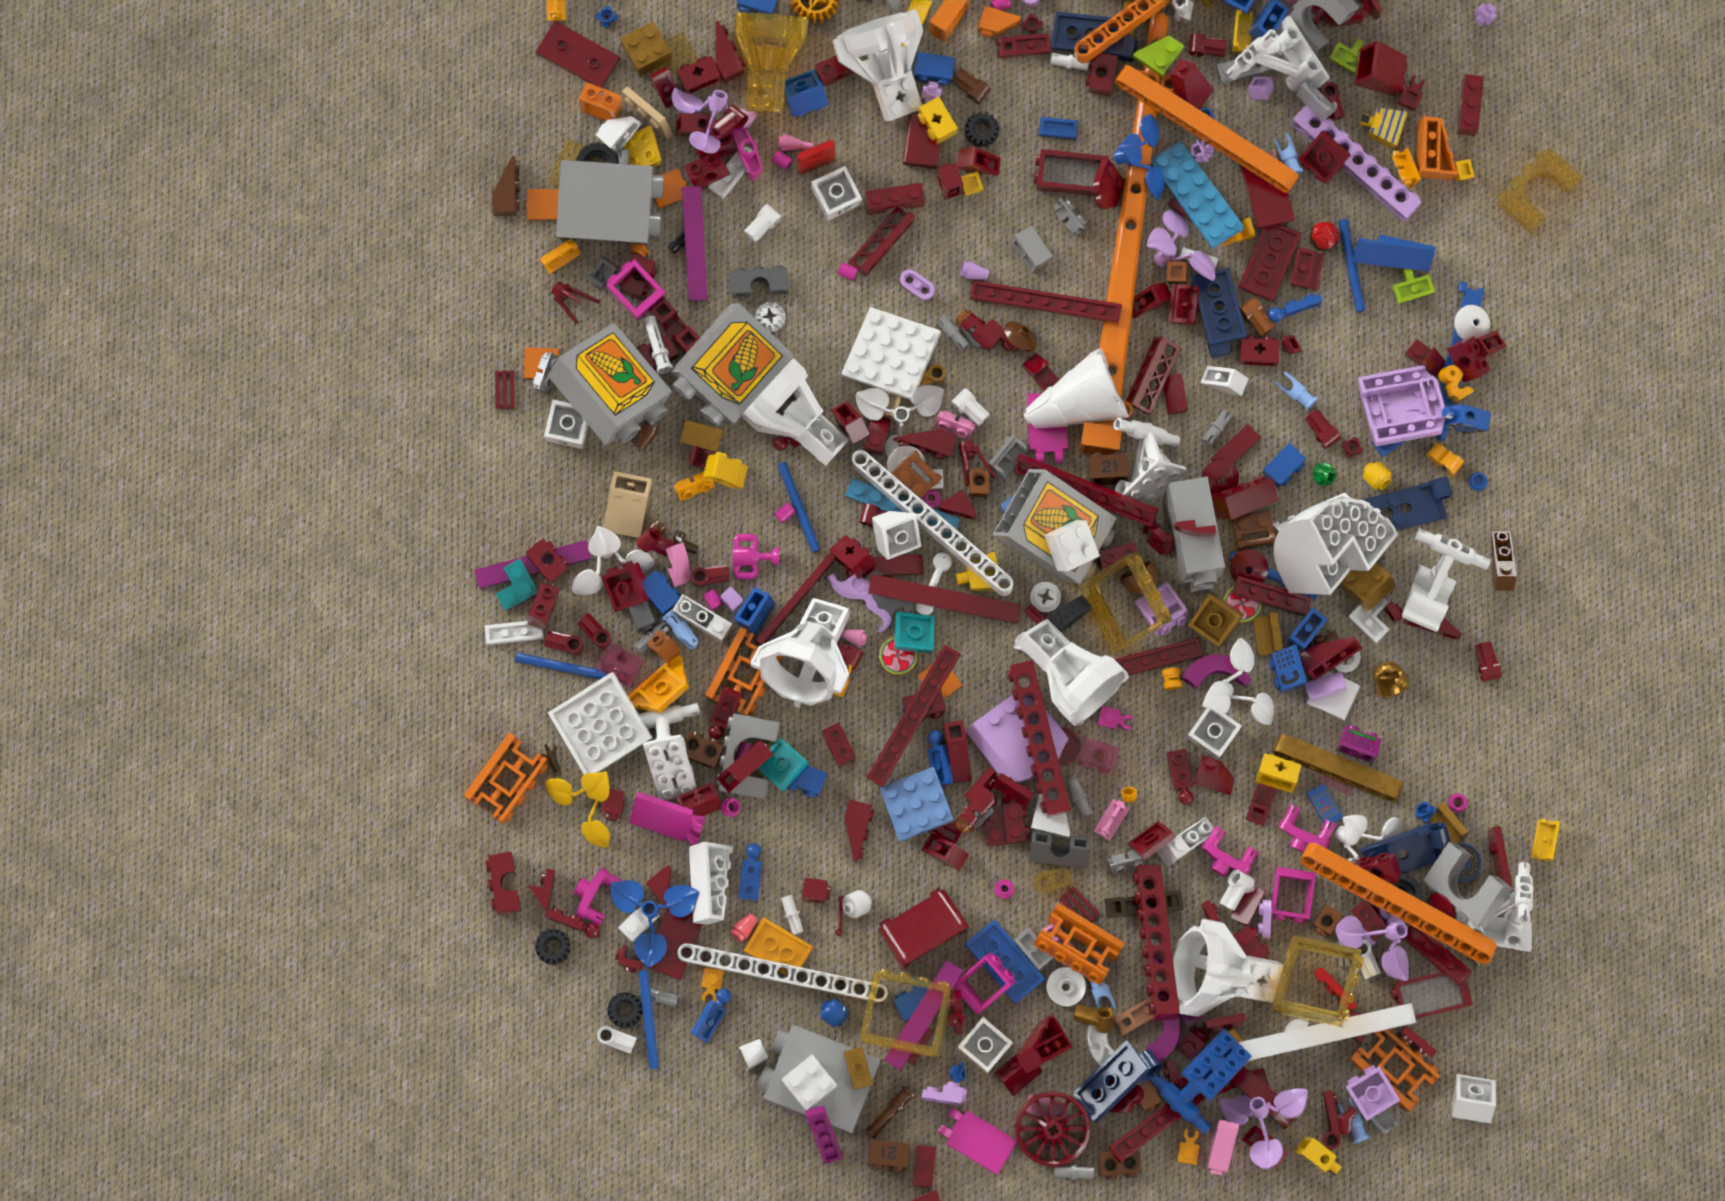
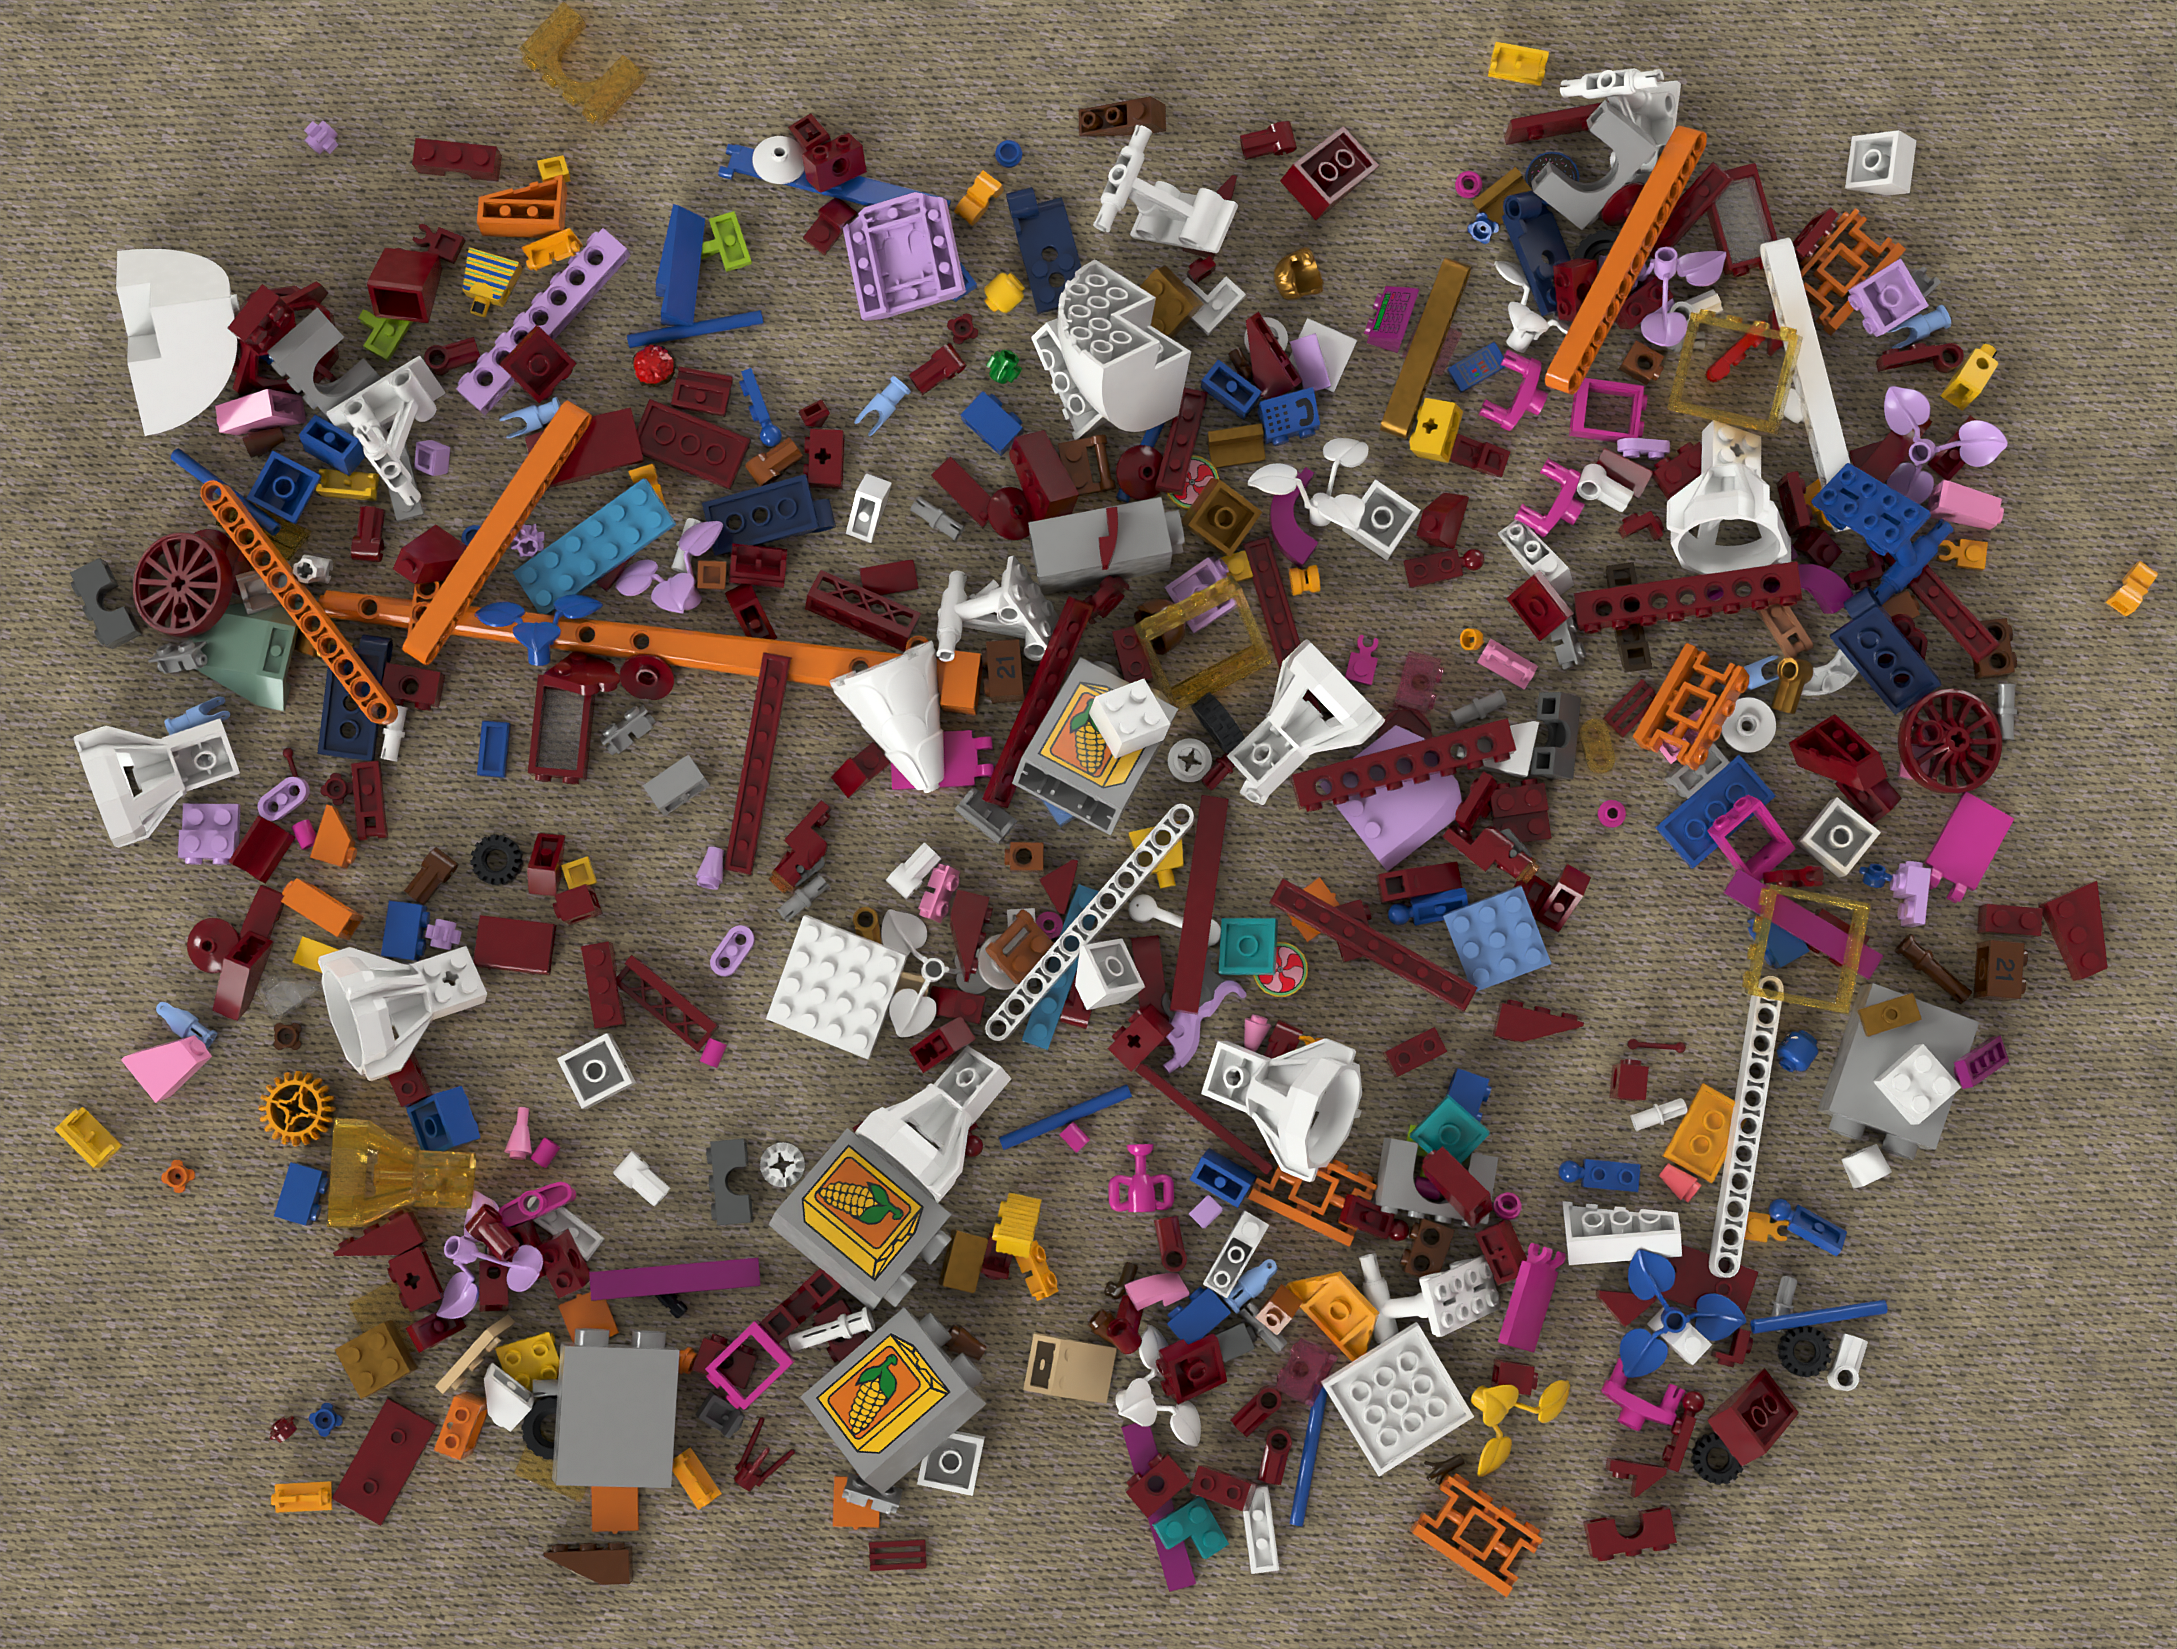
camera: 85 degrees left, 5 degrees up
(581, 969) = (1753, 1418): none -> dark red slope
(713, 600) = (1205, 1238): dark pink hinge -> none
(816, 157) = (544, 1101): red tile -> none
(857, 904) = (1643, 1022): white head -> none
(923, 928) = (1676, 925): dark red windscreen -> none
(936, 110) = (494, 910): yellow brick -> none
(968, 452) = (981, 874): dark red plant -> none
(1020, 336) = (808, 799): reddish brown dish -> none
(1106, 229) = (646, 685): none -> dark red dish
(1160, 54) = (385, 601): lime wing -> none
(1181, 633) = (1238, 566): none -> yellow plate
(1316, 100) = (453, 376): light grey hinge -> none
(1345, 1121) = (1922, 335): dark red arm -> none
(1451, 377) = (861, 186): light orange leg -> none
(1459, 418) = (919, 176): blue torso -> none
(1465, 704) = (1328, 173): none -> dark red slope

